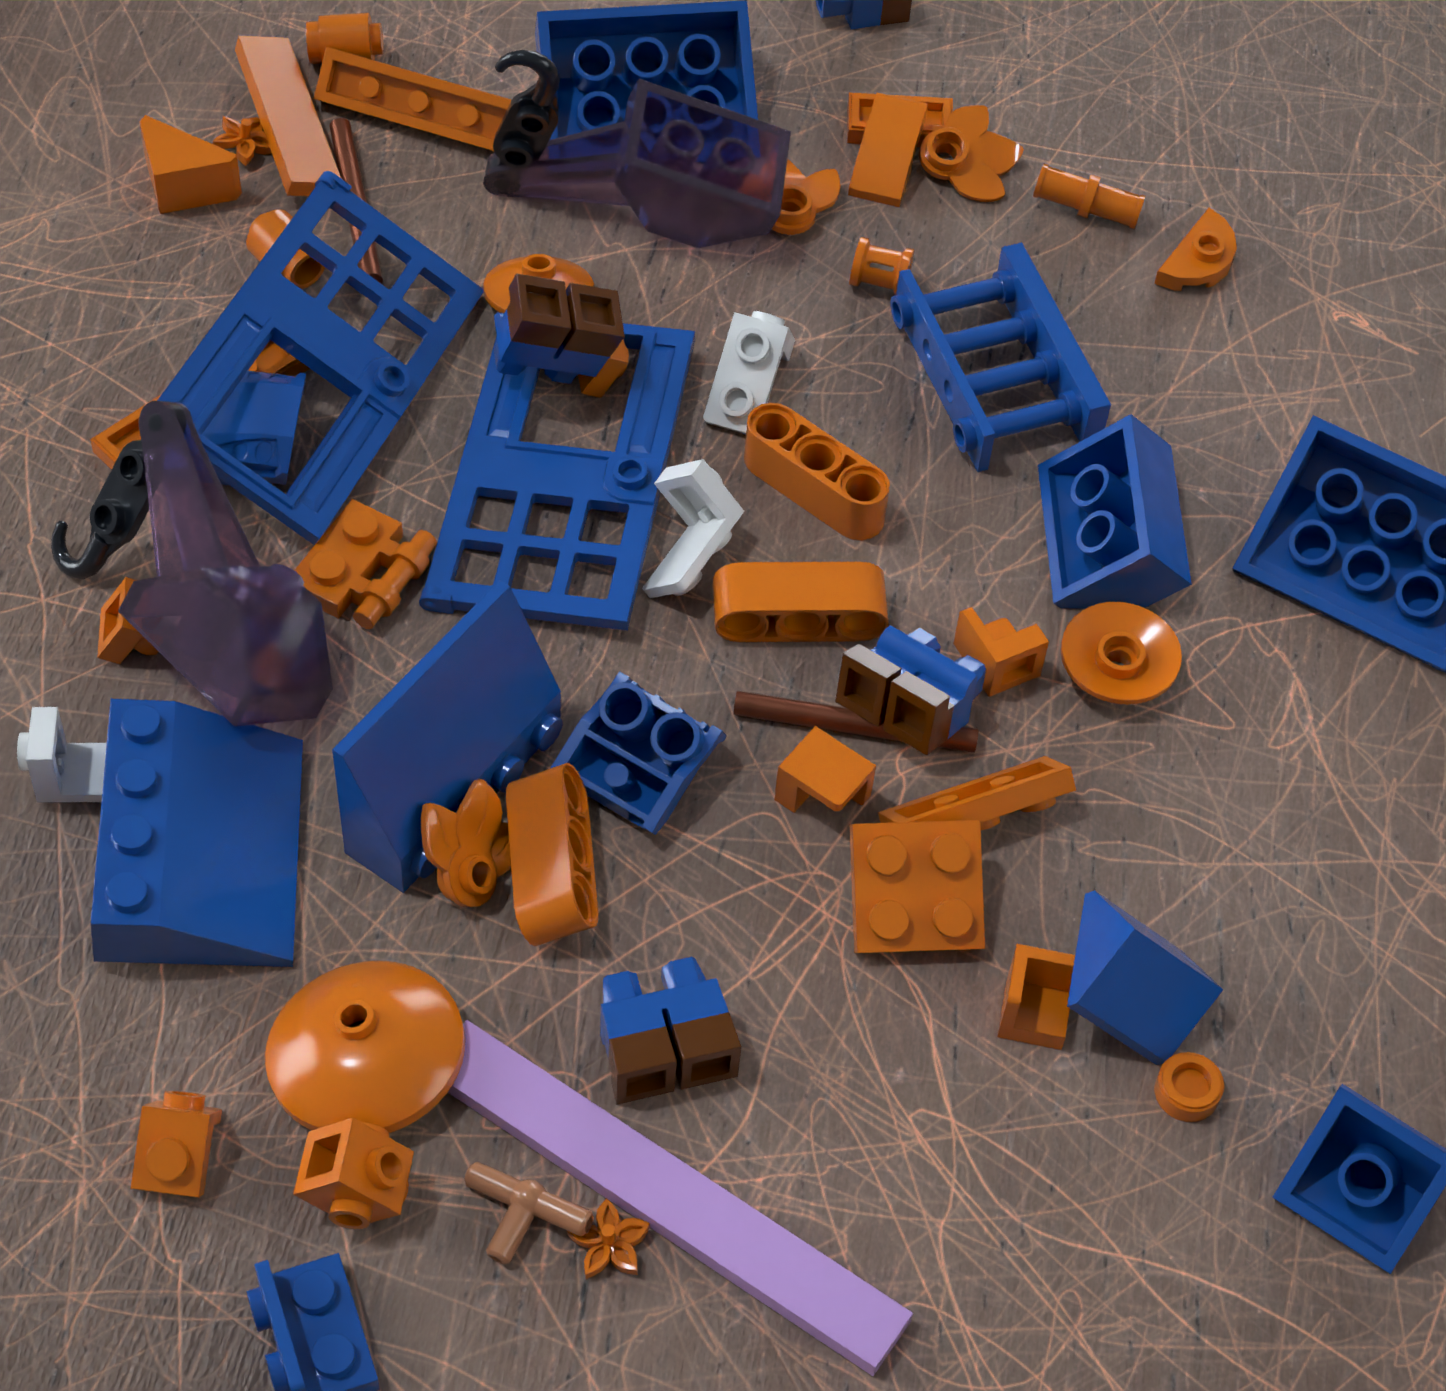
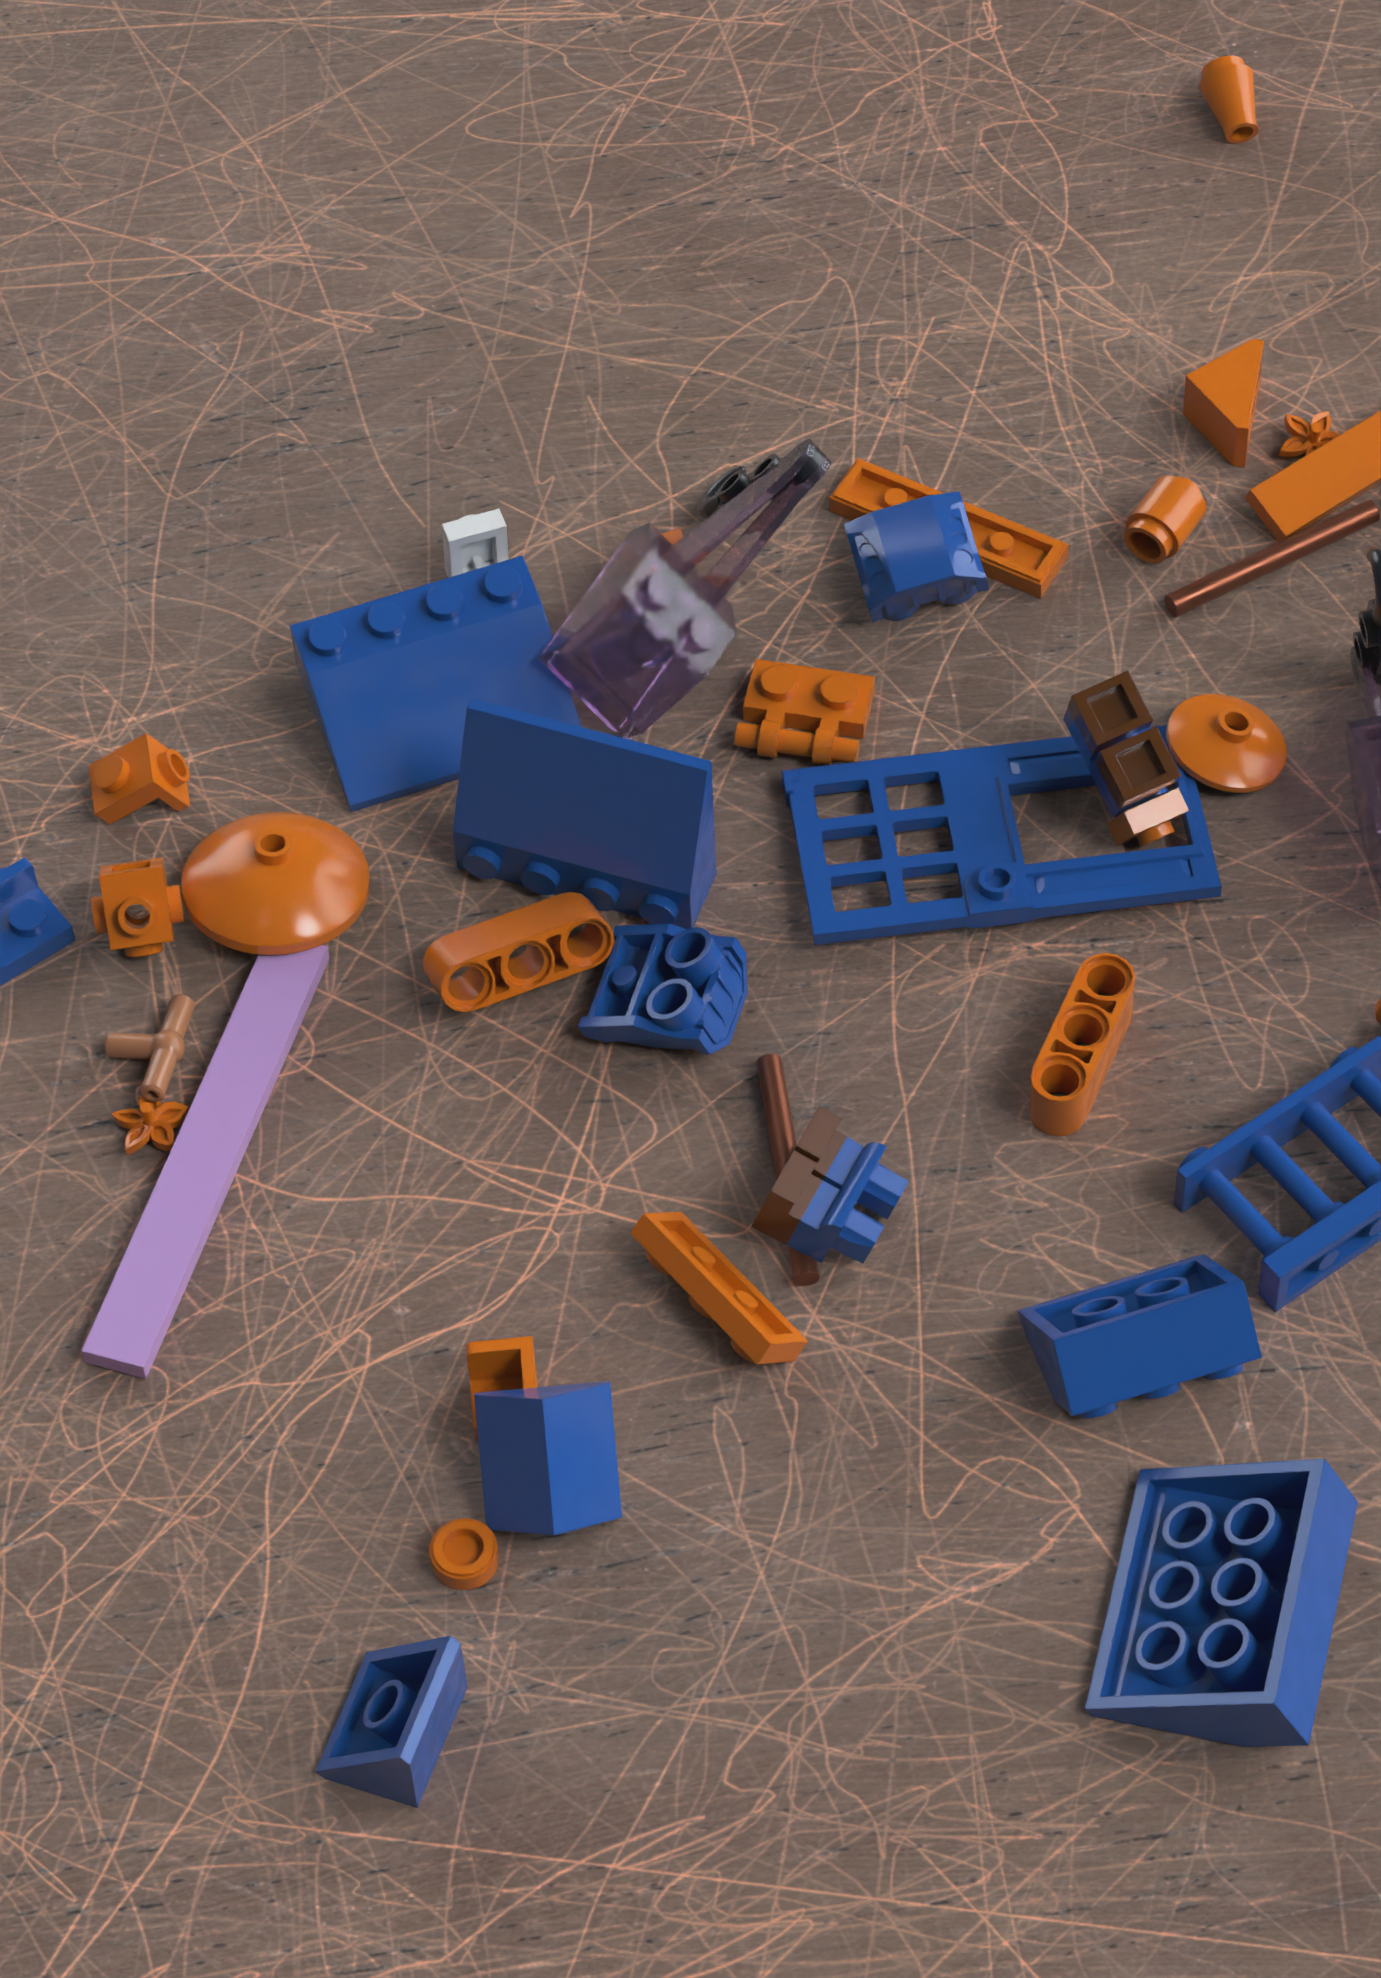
camera: 80 degrees right, 0 degrees up
(349, 359) = (1032, 578): blue door -> none
(467, 845) = (501, 876): orange plate -> none
(667, 1032) = (355, 1099): hips -> none
(710, 514) = (992, 944): white bracket -> none
(747, 368) = (1200, 939): white bracket -> none
(800, 601) = (907, 1076): orange beam -> none
(825, 771) = (694, 1143): orange panel -> none
(917, 886) = (590, 1254): orange plate -> none
(1008, 654) = (921, 1266): orange panel -> none
(1123, 635) = (963, 1350): orange dish -> none

